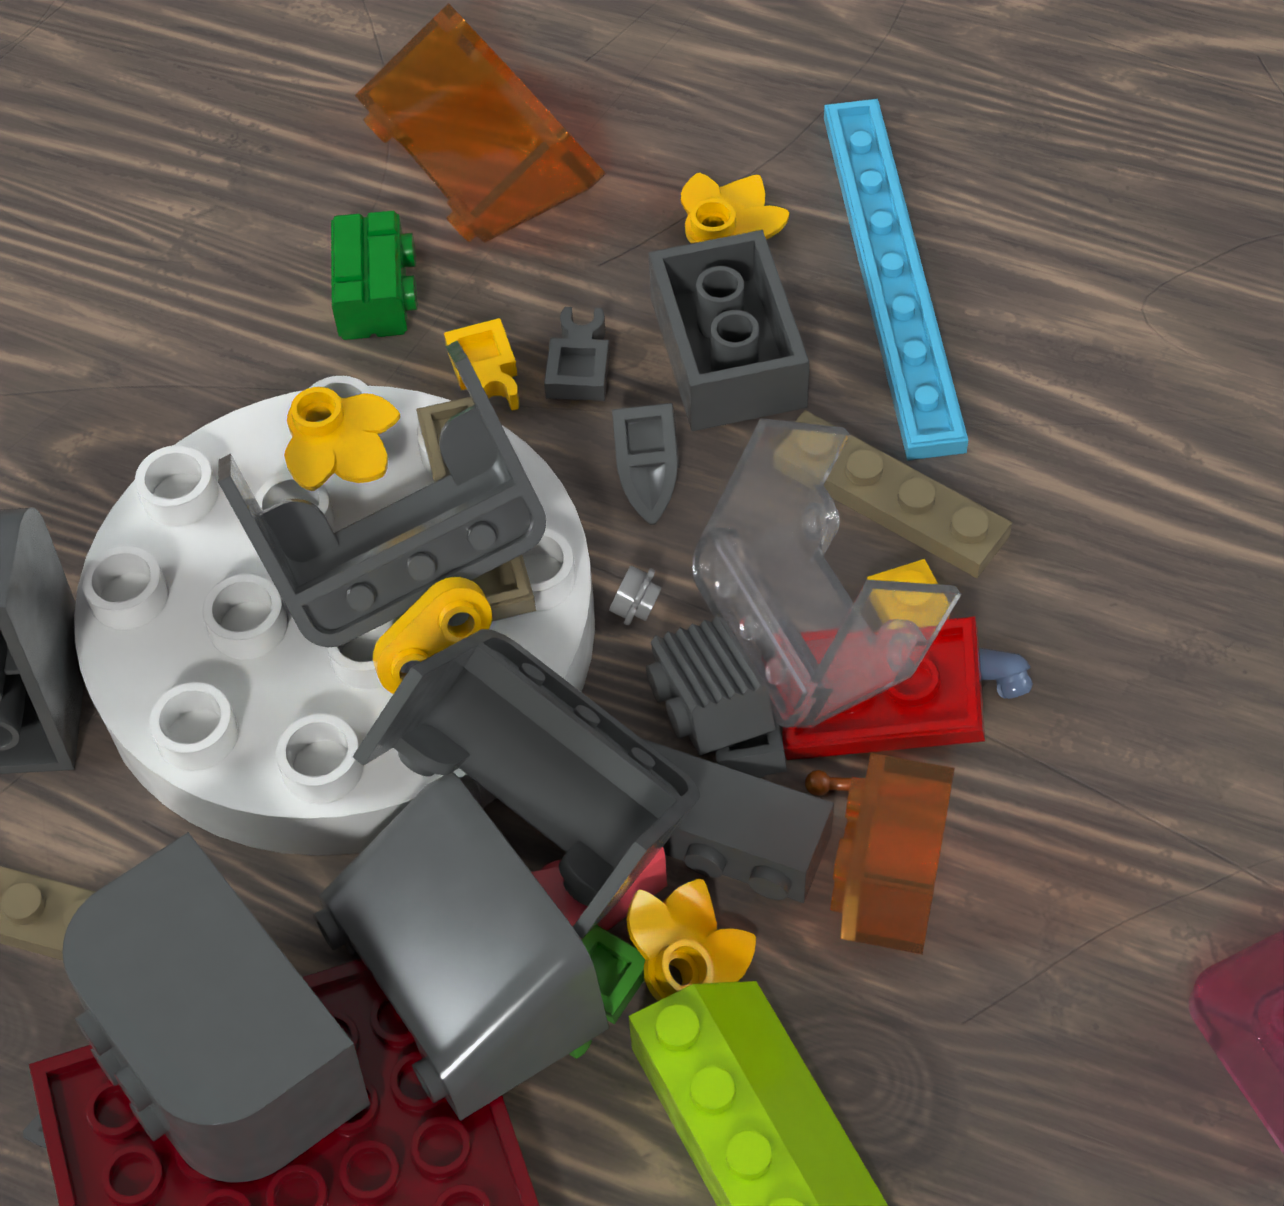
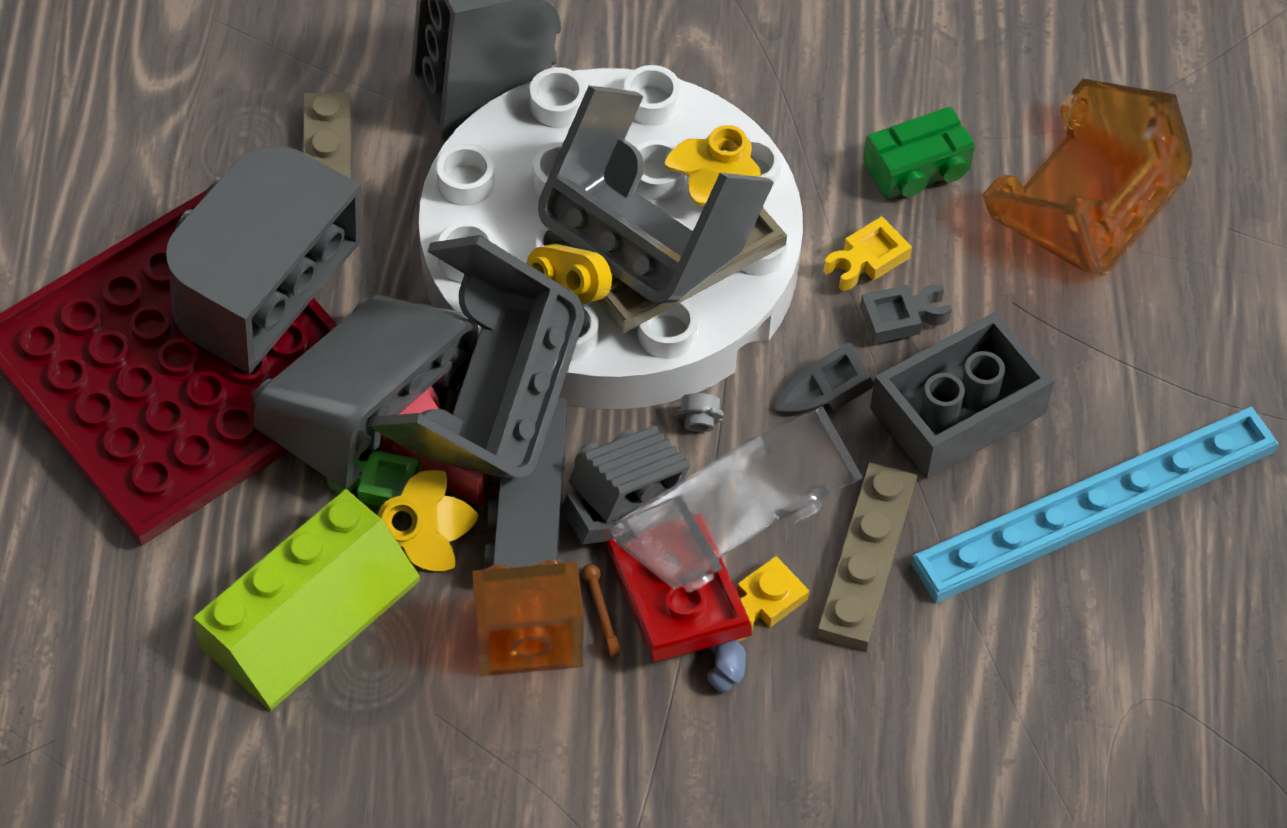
camera: 65 degrees right, 0 degrees up
(728, 209) = (1106, 374): yellow plate -> none

